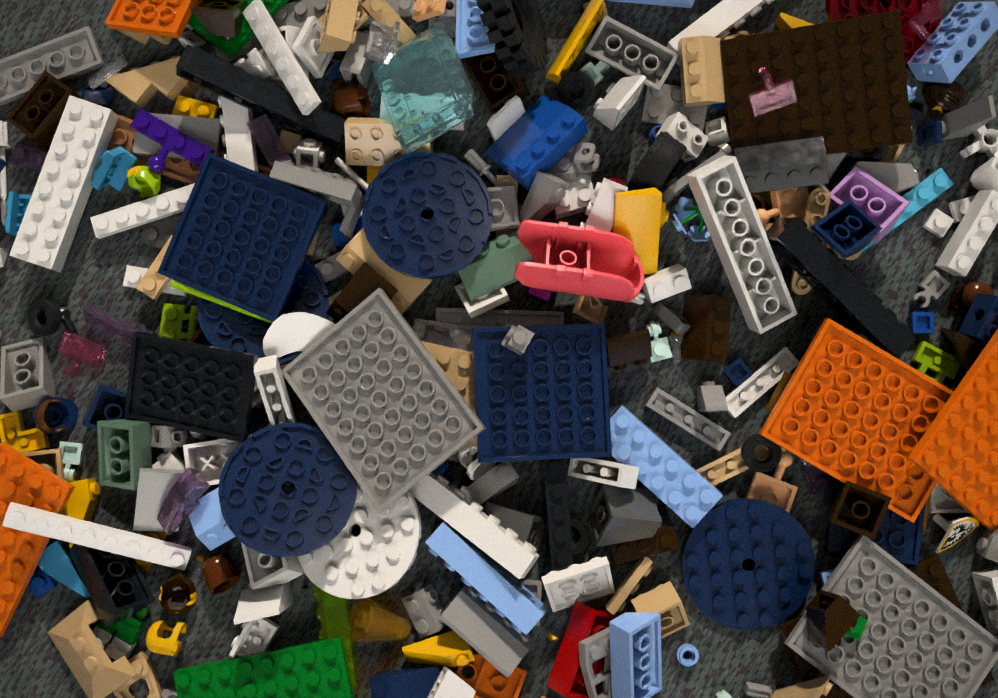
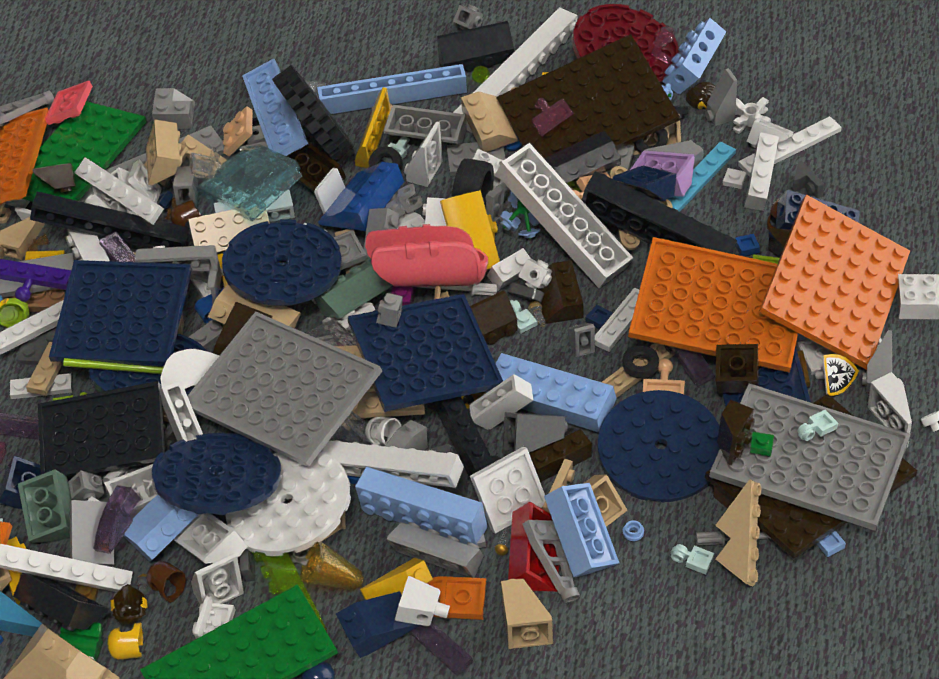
camera: 20 degrees left, 35 degrees down
(424, 610) = (371, 560): light grey bracket -> none
(687, 419) = (568, 360): light grey plate -> none
(689, 306) = (536, 273): none -> white brick
(921, 618) = (820, 422): none -> light aqua plate
(930, 133) = (701, 121): dark blue plate -> none
(932, 287) = (745, 219): light grey plate -> none

